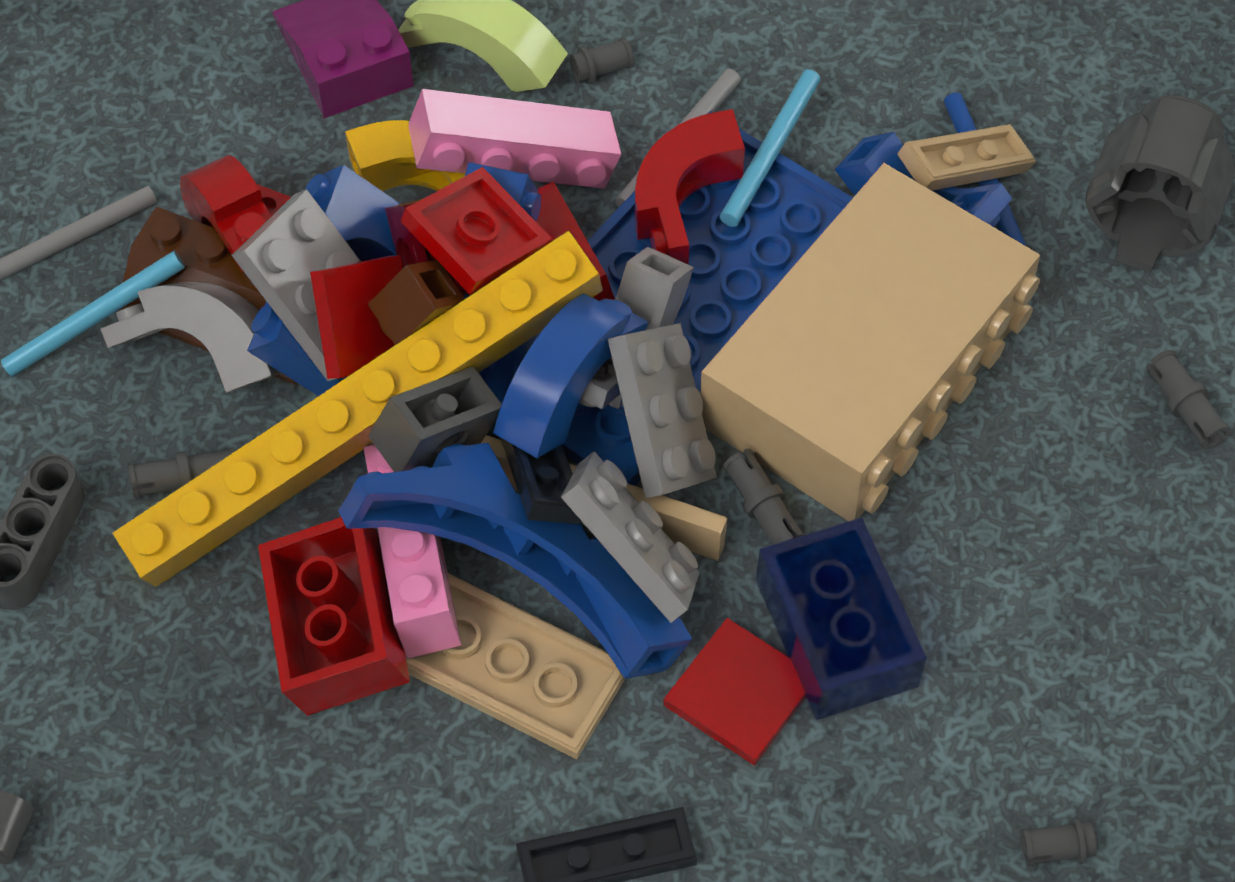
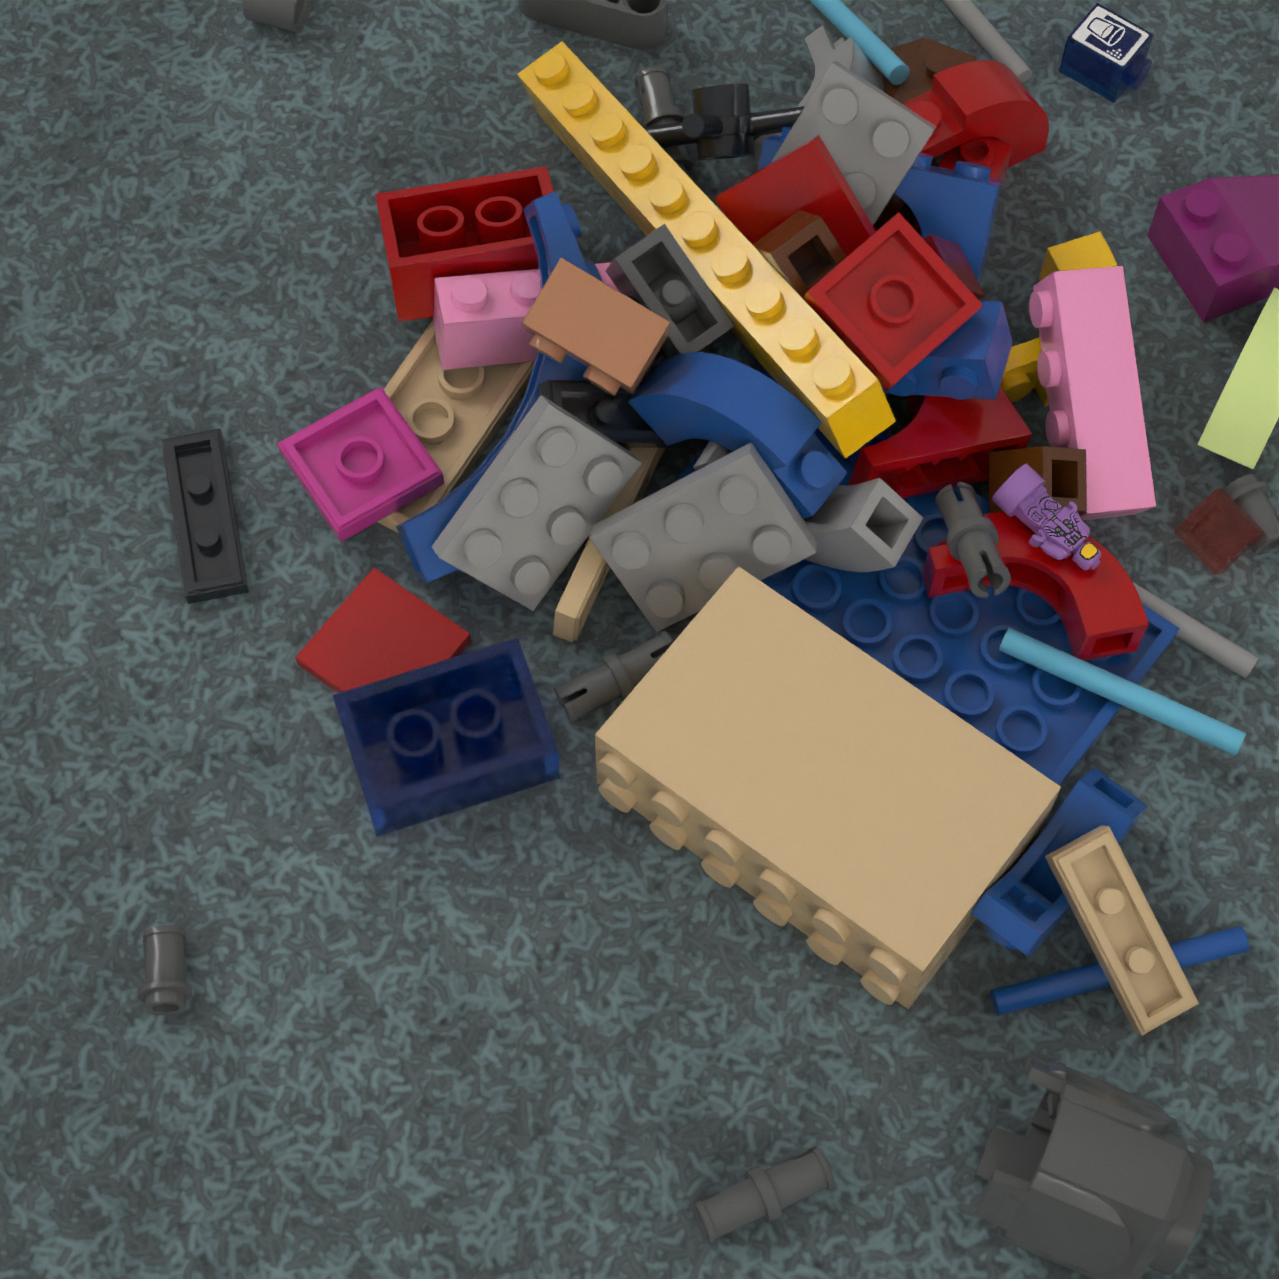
camera: 90 degrees right, 5 degrees up
(141, 125) = (1107, 53): none -> clear blue brick
(221, 397) = (723, 123): none -> black bar
(490, 456) = (596, 328): none -> nougat brick
(561, 710) = (360, 463): none -> dark pink tile
(596, 182) = (1060, 467): none -> reddish brown brick
(620, 82) = (1219, 531): none -> clear red tile
(662, 153) = (1056, 528): none -> medium lavender piece
(670, 210) = (972, 540): none -> dark grey pin

